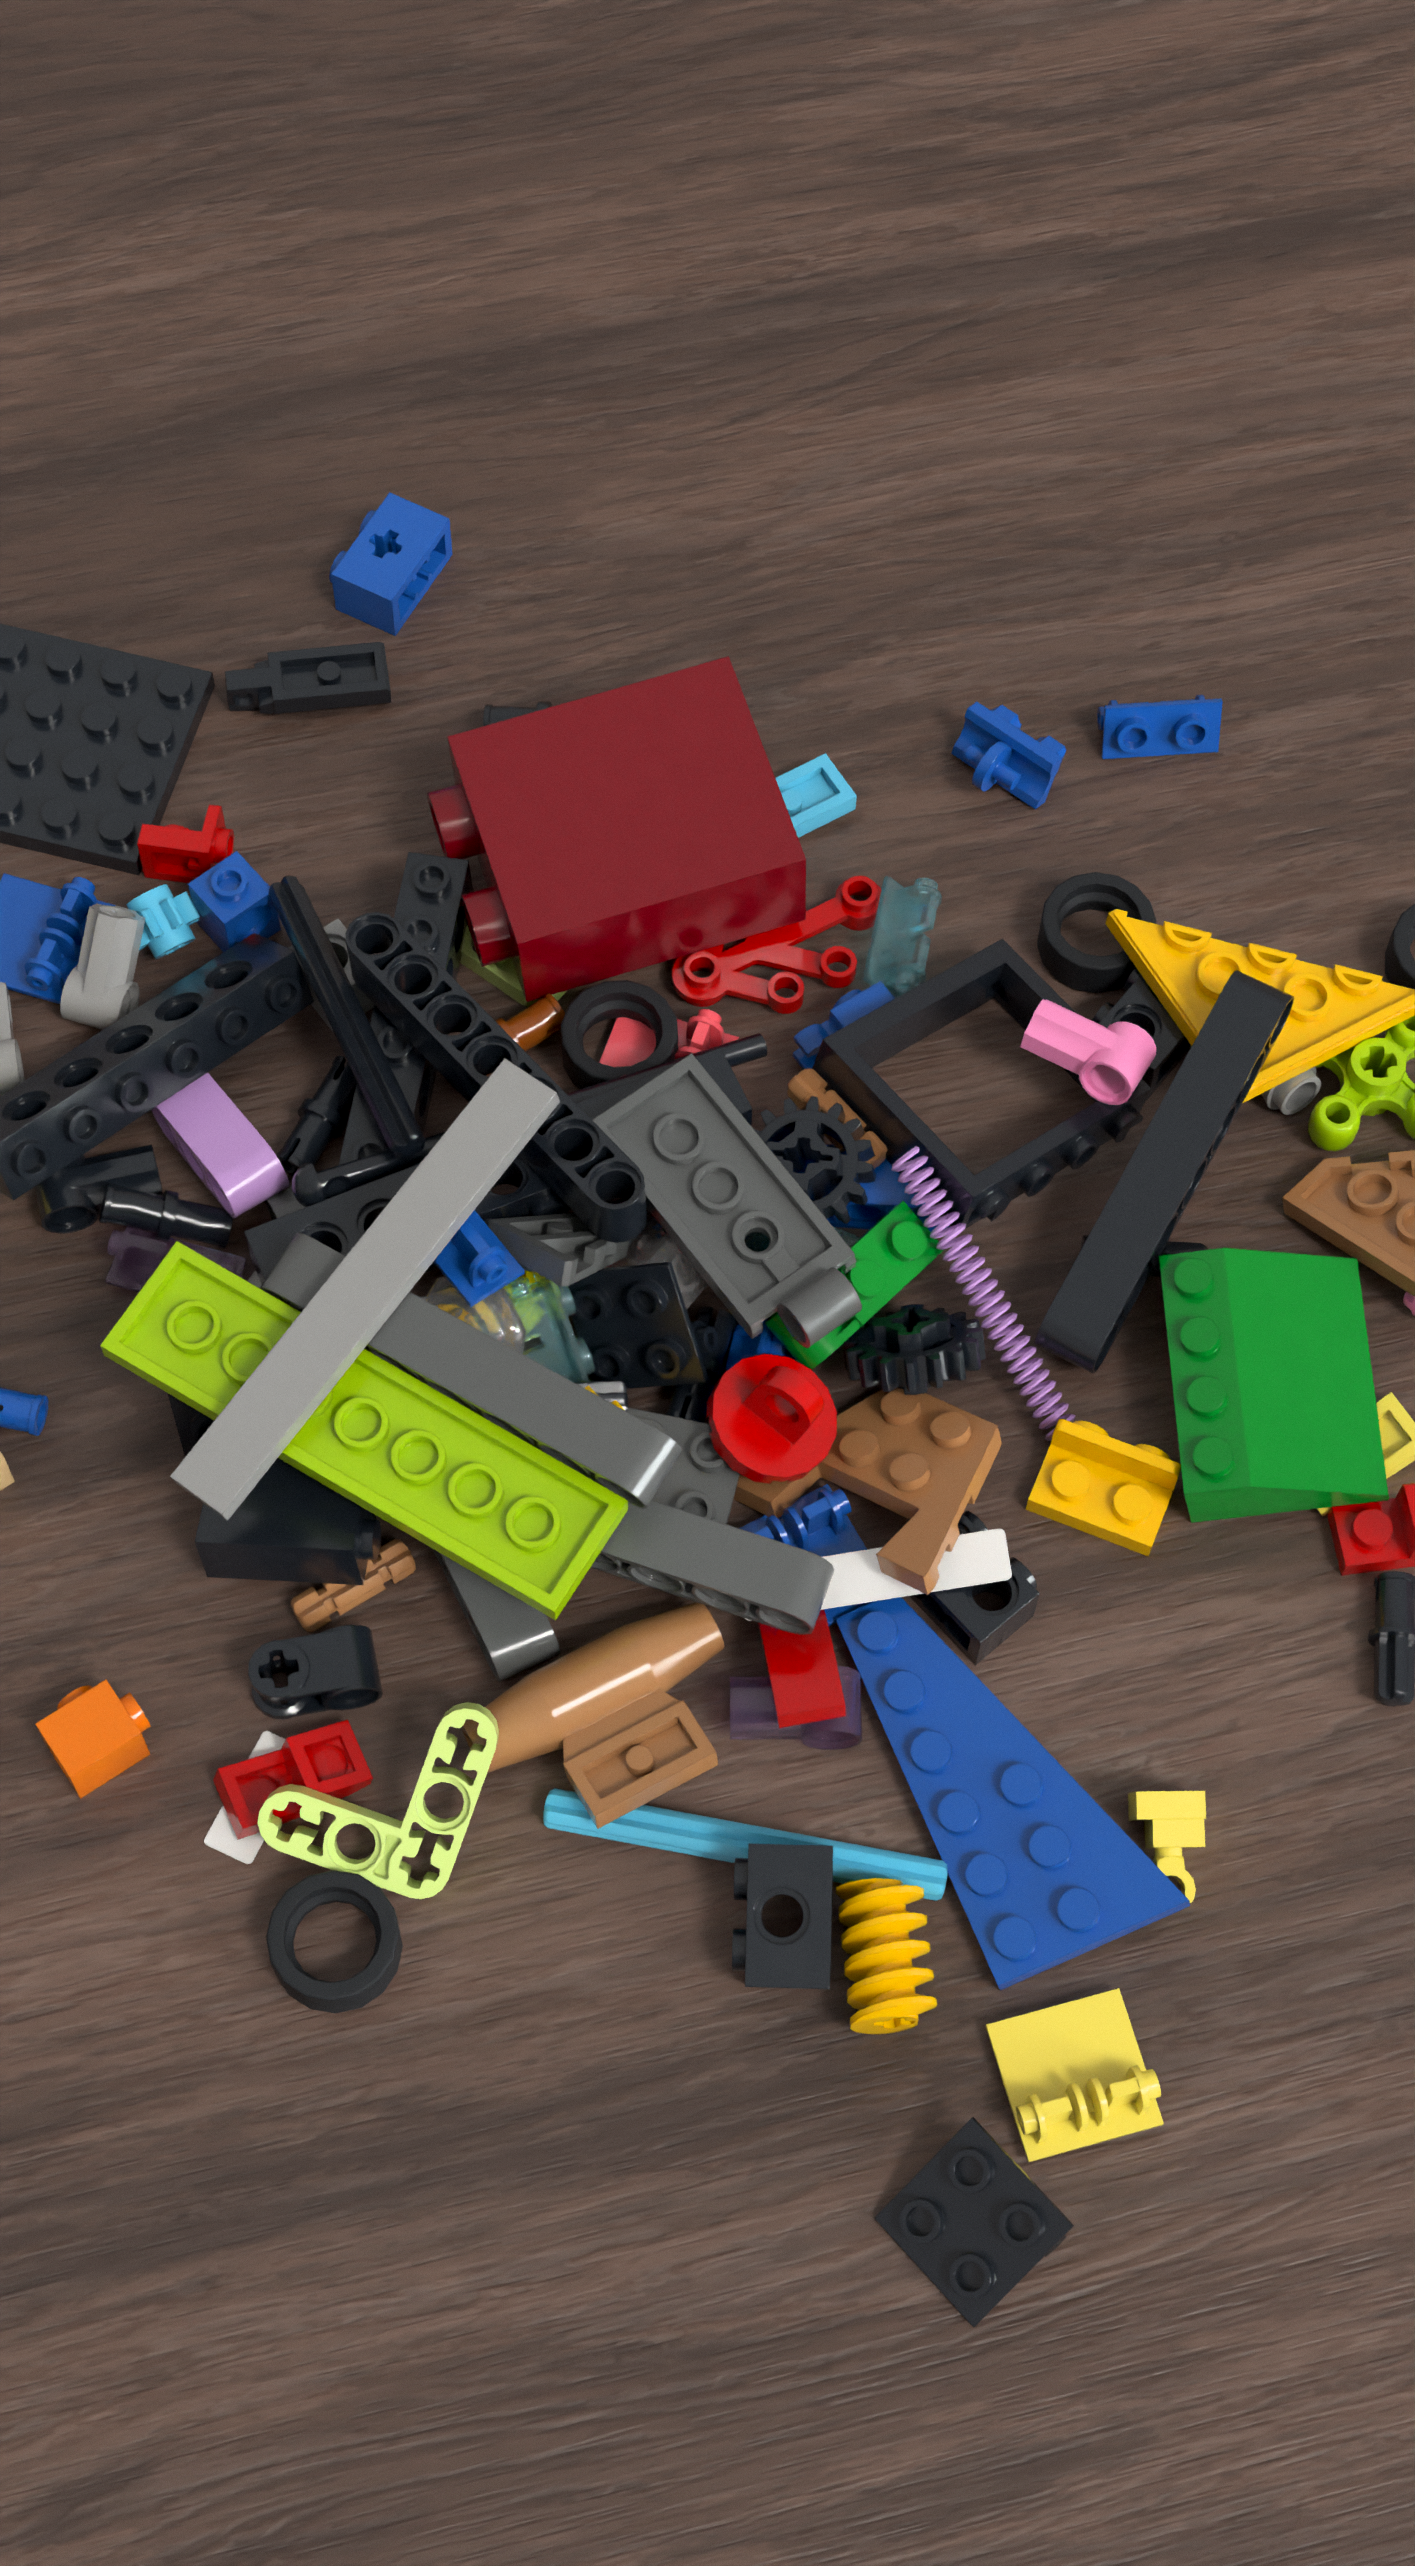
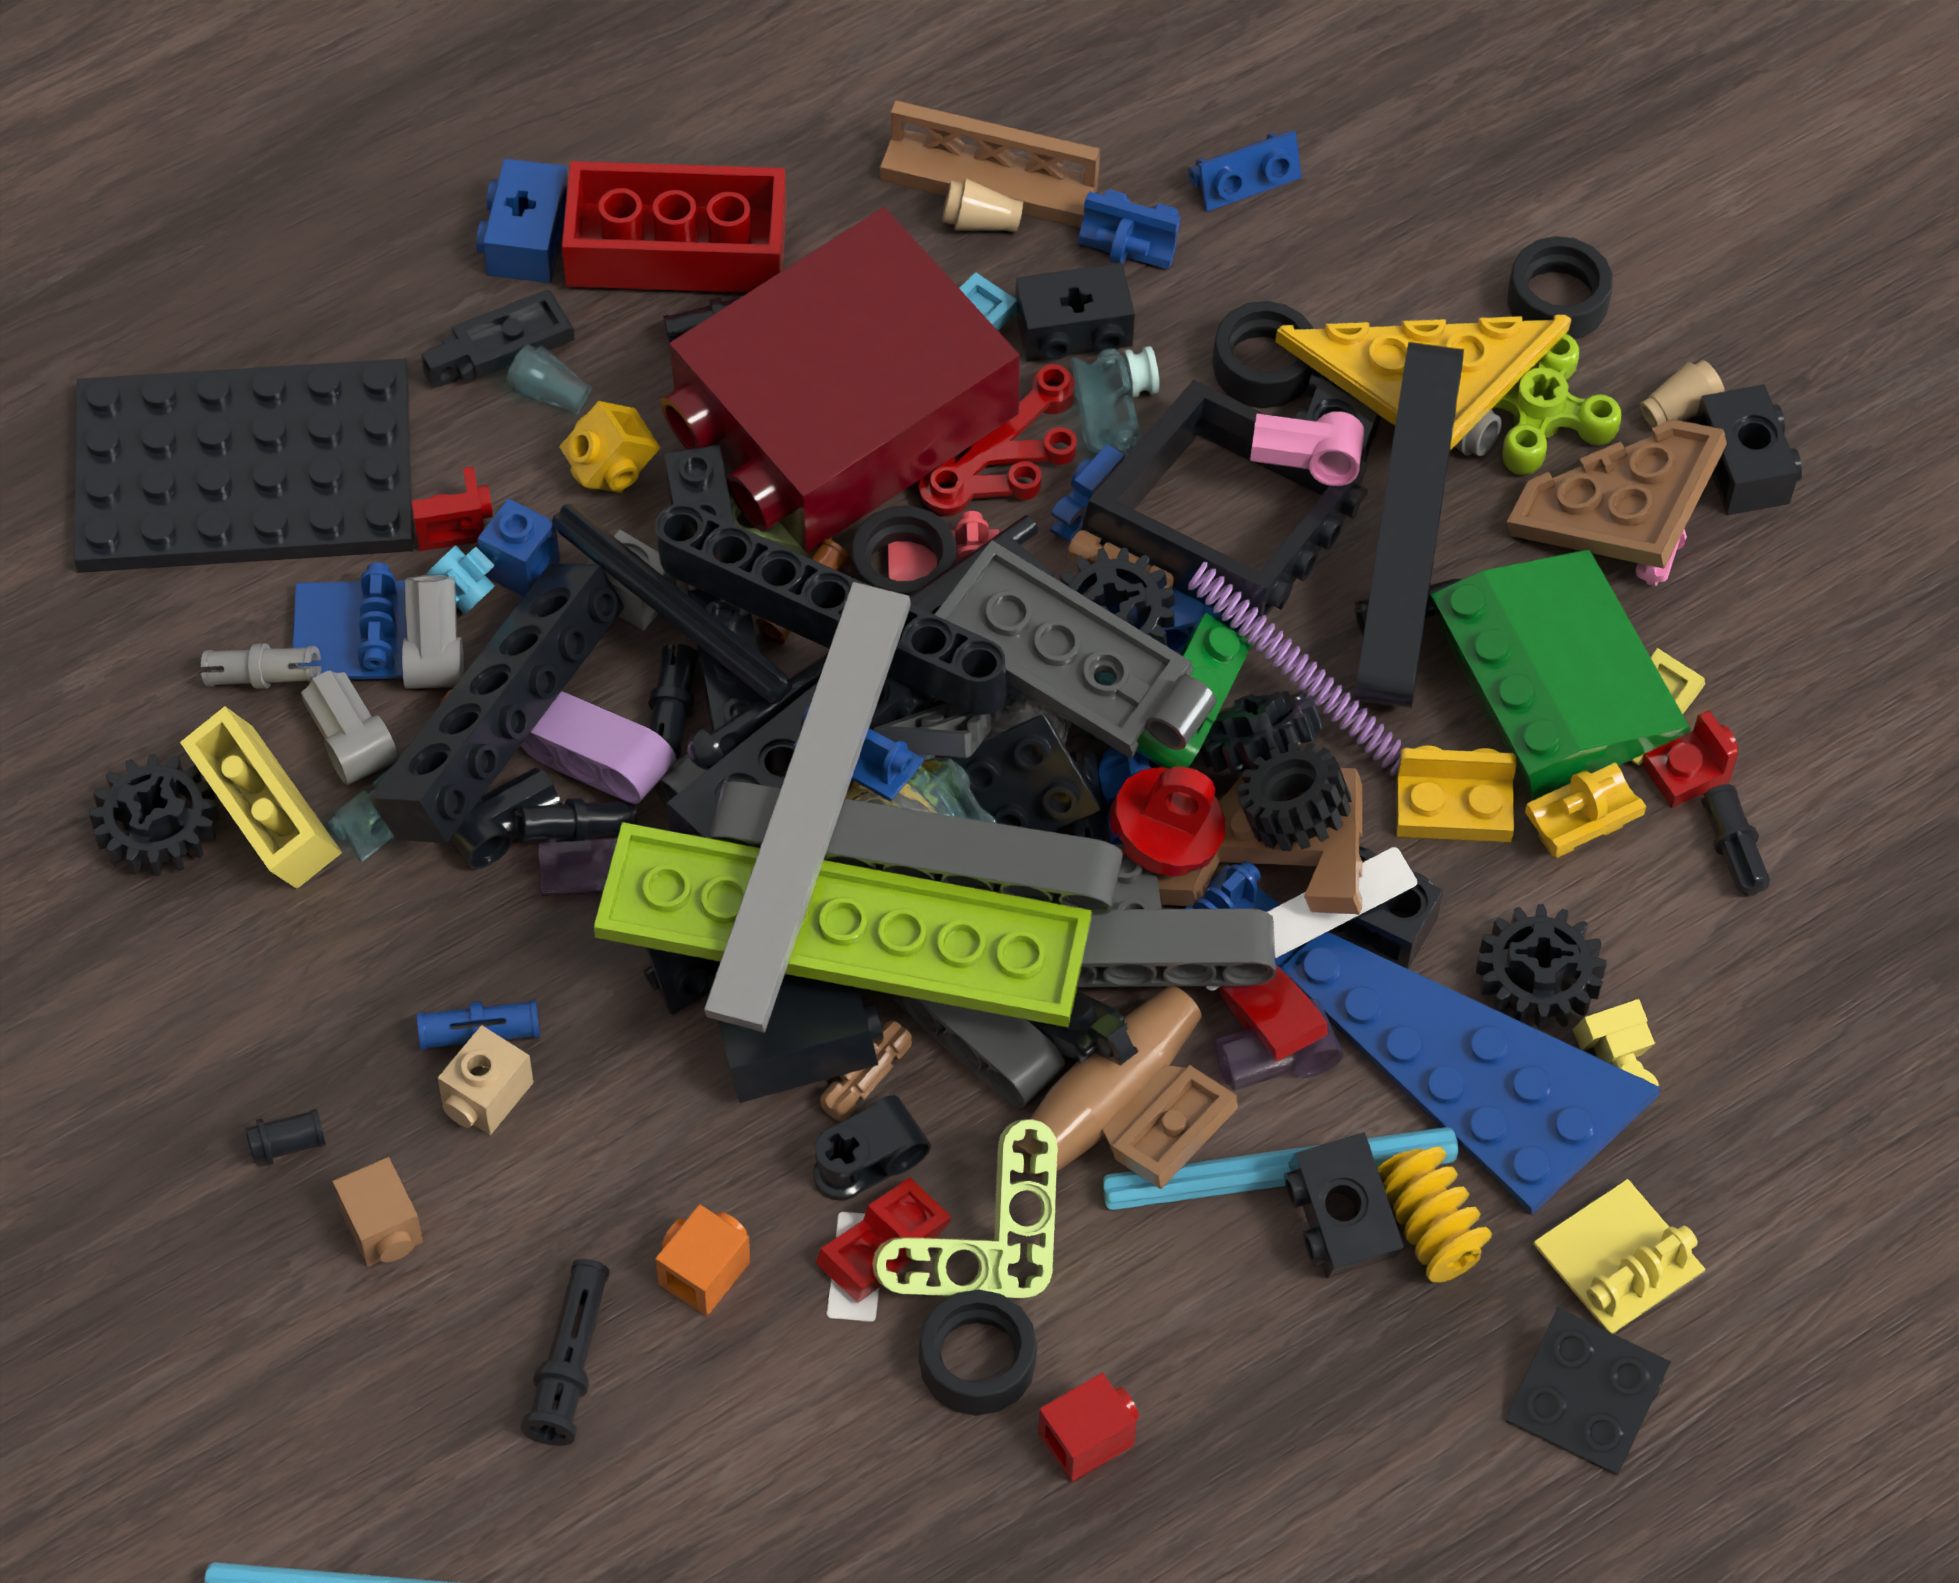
camera: 20 degrees left, 5 degrees down
(340, 734) = (545, 378): none -> clear light blue cone
(369, 827) = (609, 447): none -> yellow brick
(416, 2068) = (1088, 1426): none -> red brick
(532, 612) = (673, 226): none -> red brick
(593, 1625) = (1091, 1030): none -> black hinge
(860, 686) = (980, 208): none -> tan cone
(888, 648) = (935, 159): none -> medium nougat fence
(912, 826) = (1074, 312): none -> black brick
(916, 1463) = (1302, 817): none -> black tyre
(955, 912) = (1142, 371): none -> light aqua bush
(1144, 1723) = (1530, 990): none -> black gear
(1236, 1550) = (1584, 809): none -> yellow hips

